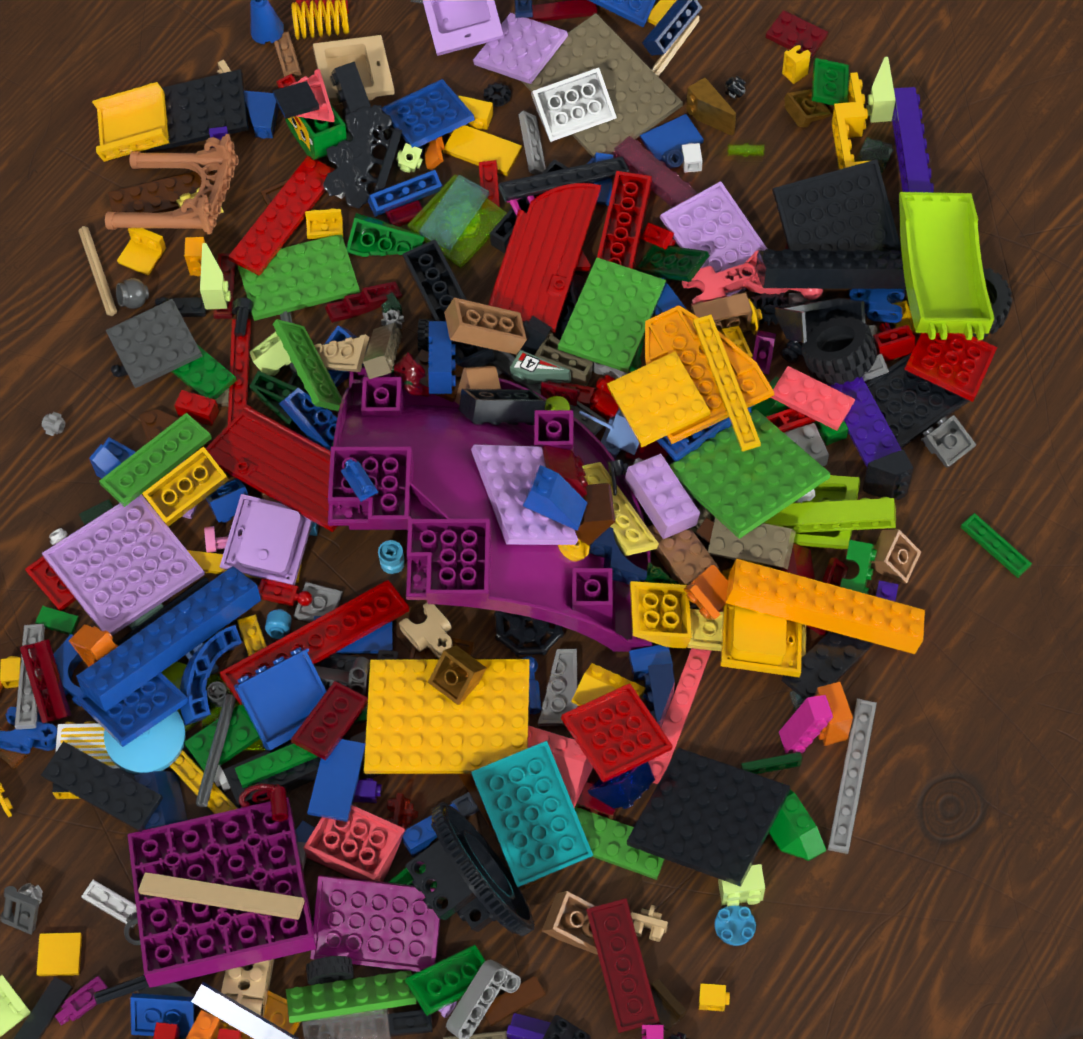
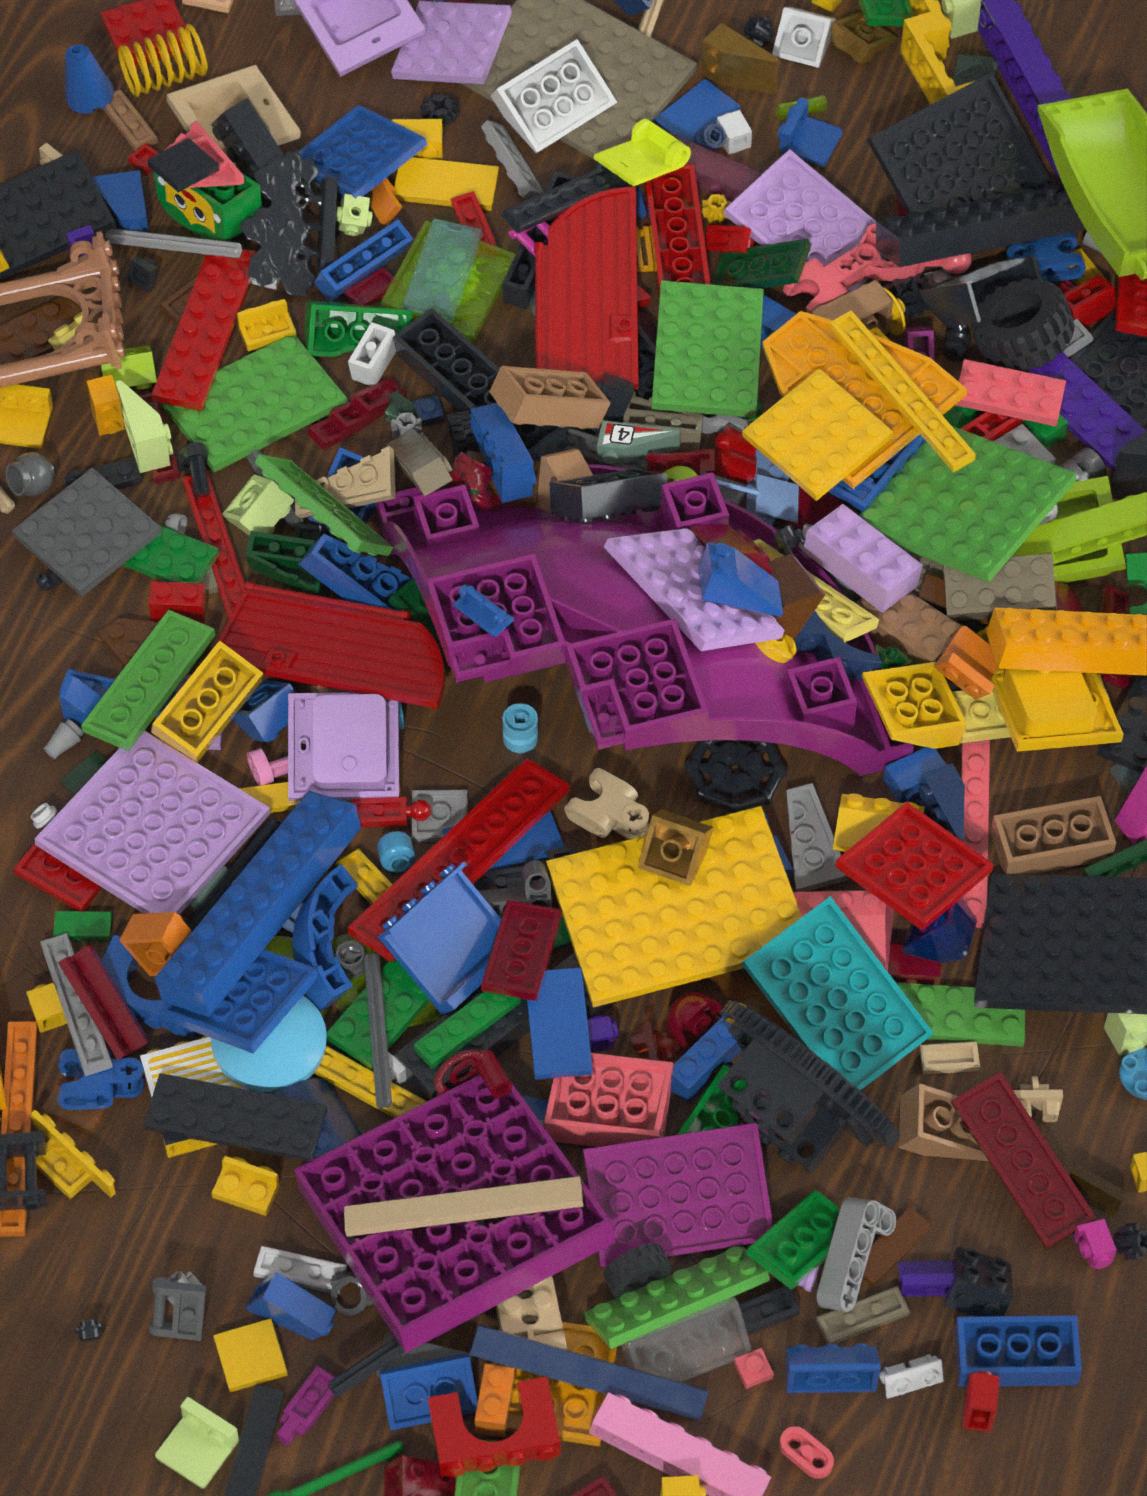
camera: 20 degrees left, 5 degrees down
(89, 485) = (64, 738): none -> light grey cone
(95, 930) = (291, 1307): none -> blue slope
(97, 834) = (246, 1185): none -> yellow bracket
(217, 351) = (176, 523): none -> light grey hinge
(226, 233) = (136, 368): none -> lime slope
(257, 166) = (142, 272): none -> black tile
(282, 150) = (174, 243): none -> light grey axle
(386, 262) = (372, 354): none -> white brick
(412, 311) = (429, 410): none -> dark blue plate
(430, 795) = (692, 1017): none -> dark red cylinder
(599, 215) = (644, 233): none -> light orange tile
(602, 874) = (949, 1058): none -> tan tile
(619, 163) = (646, 155): none -> neon yellow door
(657, 209) = (714, 209): none -> yellow gear
(729, 733) = (1053, 837): none -> medium nougat brick
(742, 172) = (808, 137): none -> blue bracket
(764, 98) = (803, 36): none -> white slope
(847, 466) = (1085, 464): none -> flat silver wheel

